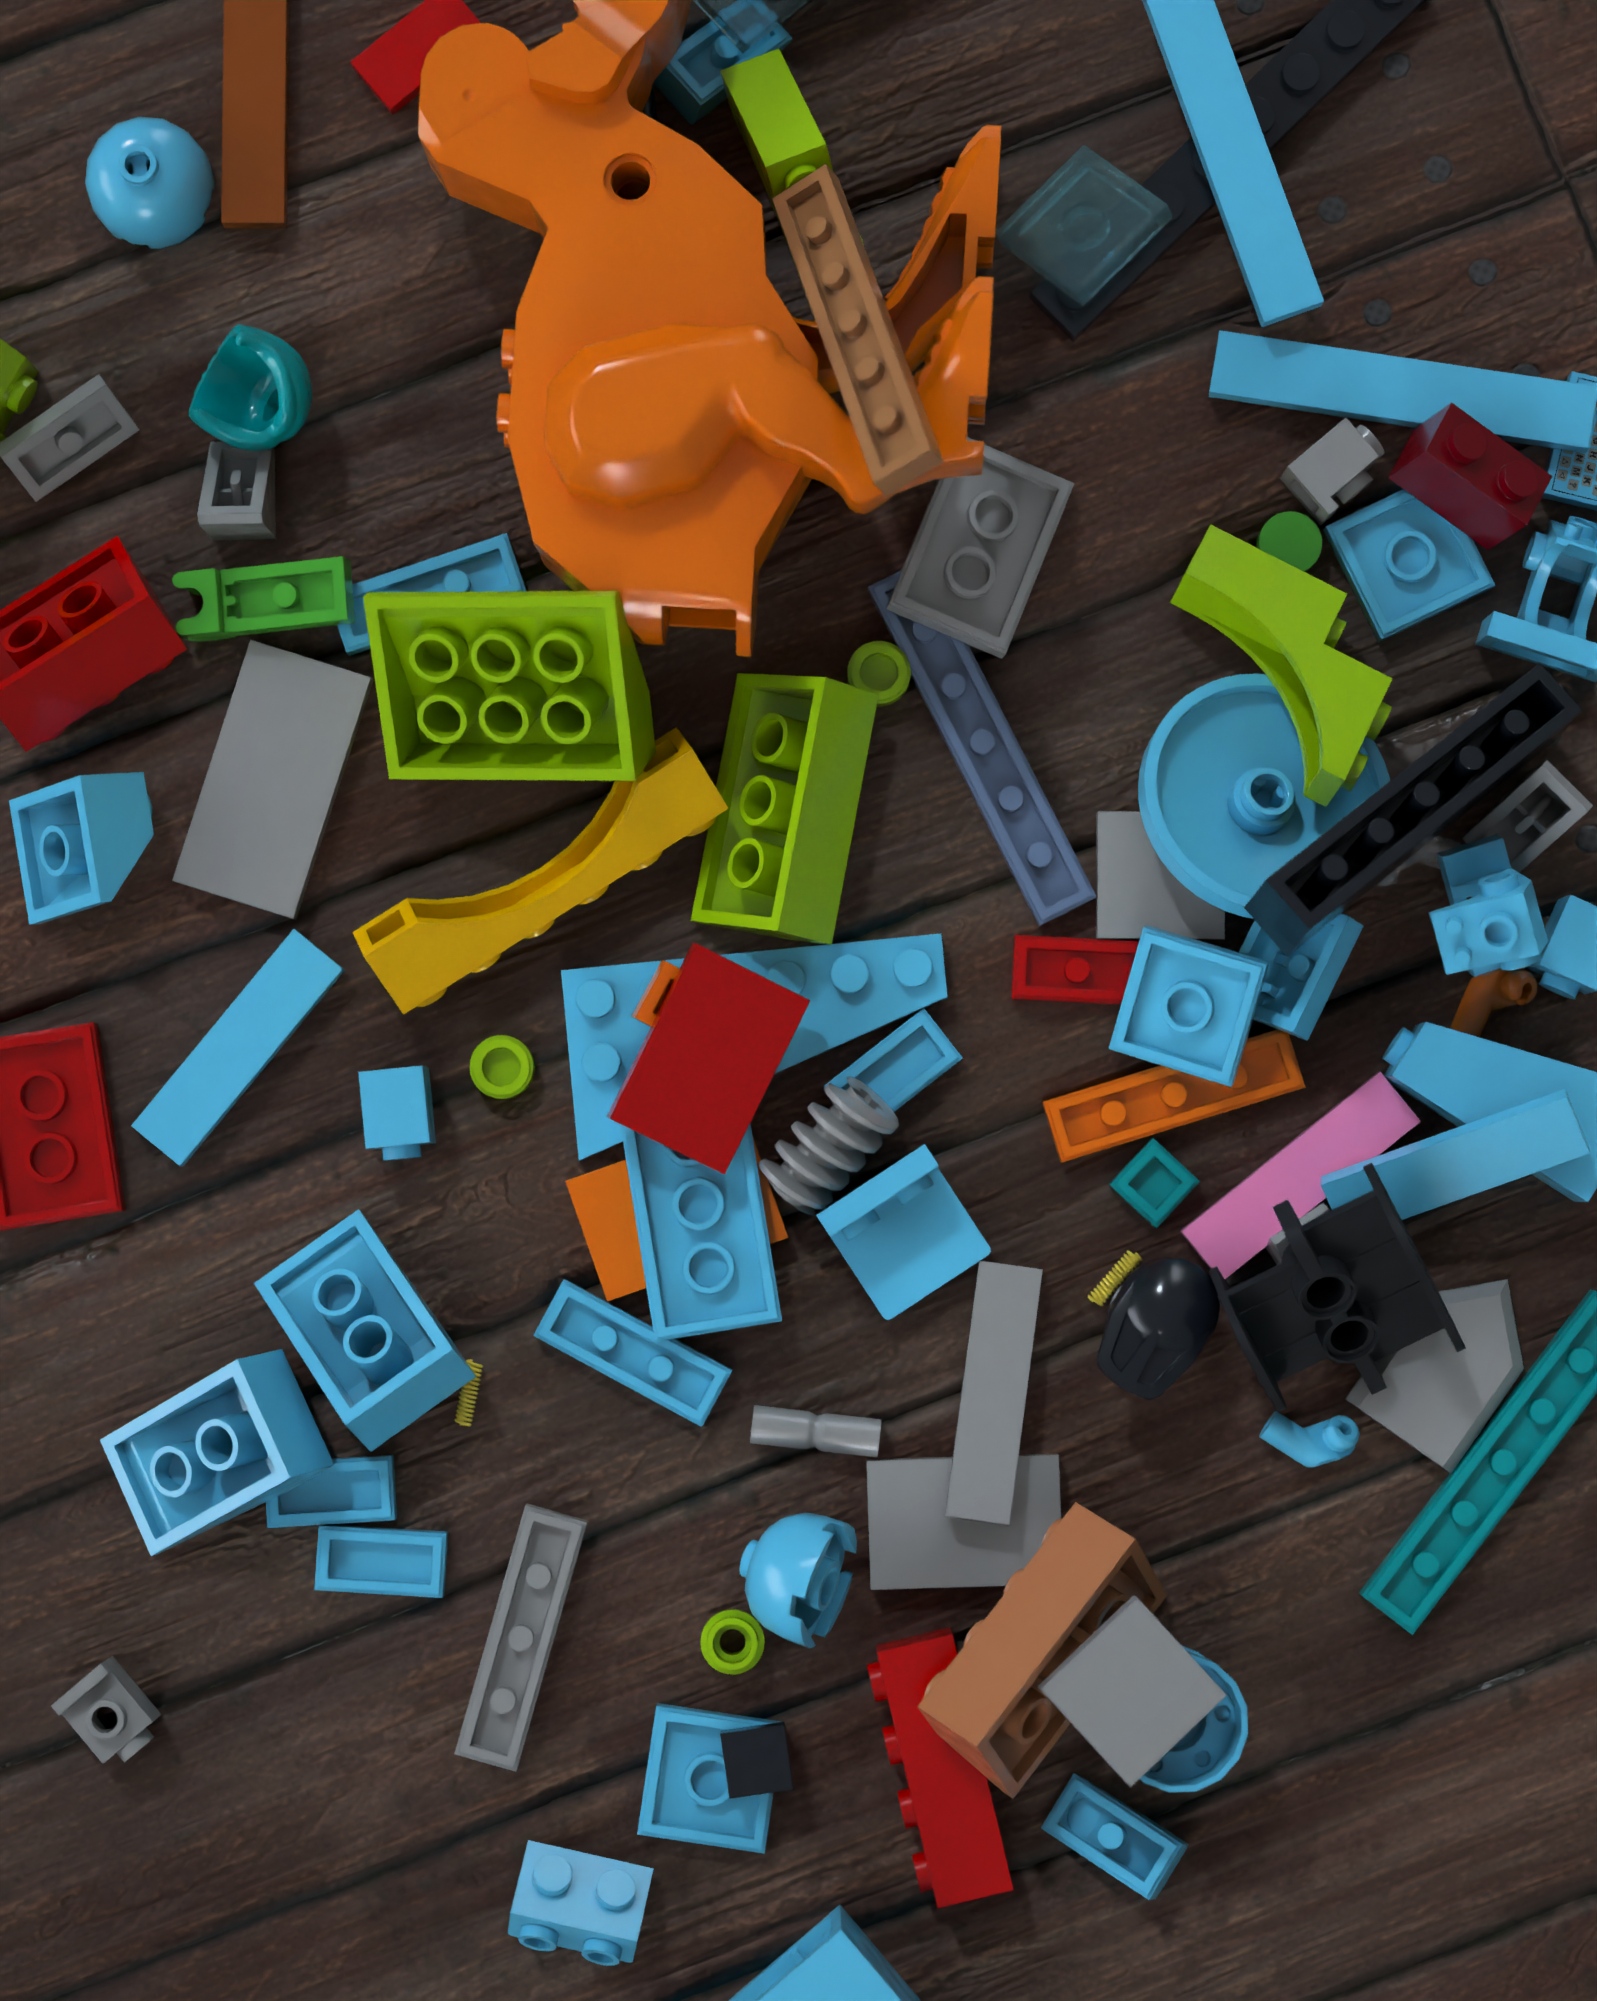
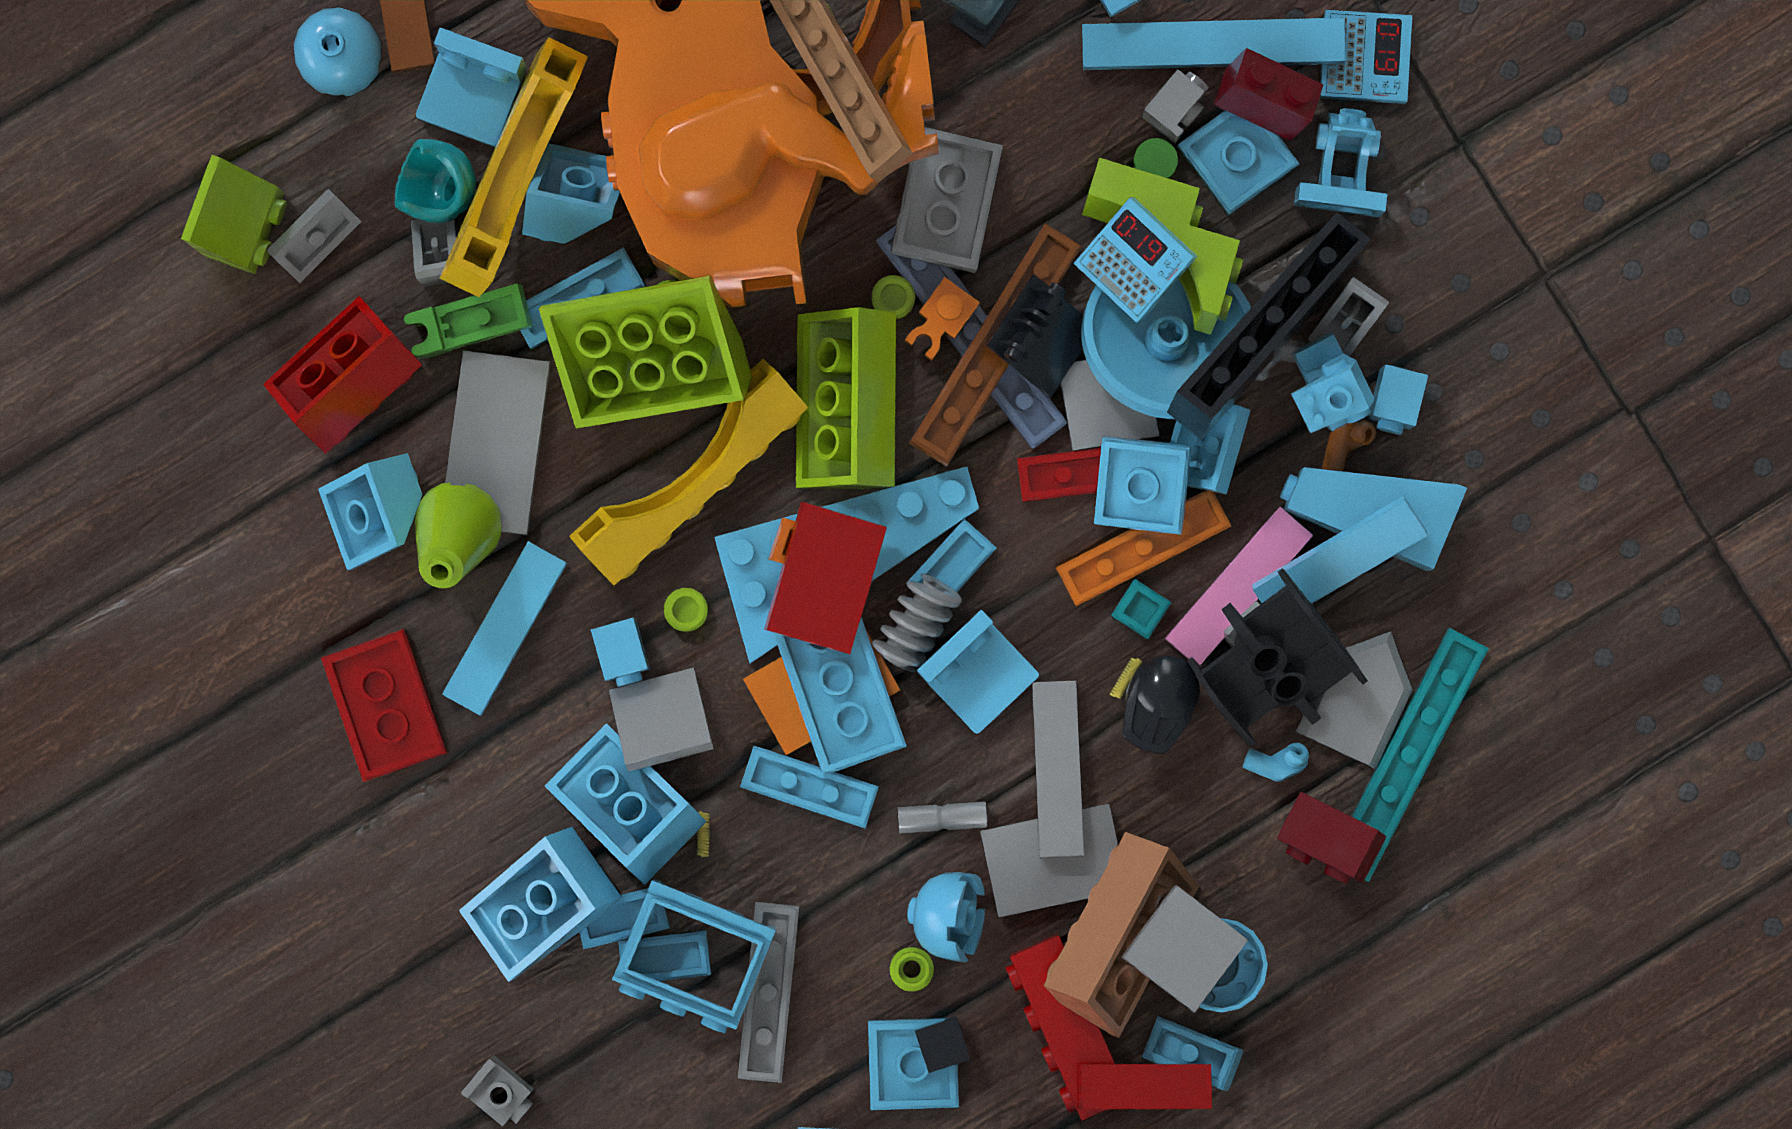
camera: 15 degrees left, 0 degrees up
(188, 898) = (454, 532): none -> lime cone
(330, 266) = (471, 88): none -> medium azure bracket
(365, 389) = (512, 166): none -> yellow arch
(383, 1627) = (677, 1000): none -> medium azure window
(436, 1219) = (661, 719): none -> light grey tile
(437, 444) = (568, 195): none -> medium azure slope
(949, 709) = (945, 313): none -> orange plate
(1012, 767) = (980, 367): none -> dark orange tile
(1037, 1876) = (1144, 1086): none -> red tile
(1079, 764) = (1040, 335): none -> black hinge
(1237, 679) = (1135, 259): none -> tile
(1371, 1564) = (1330, 838): none -> dark red brick

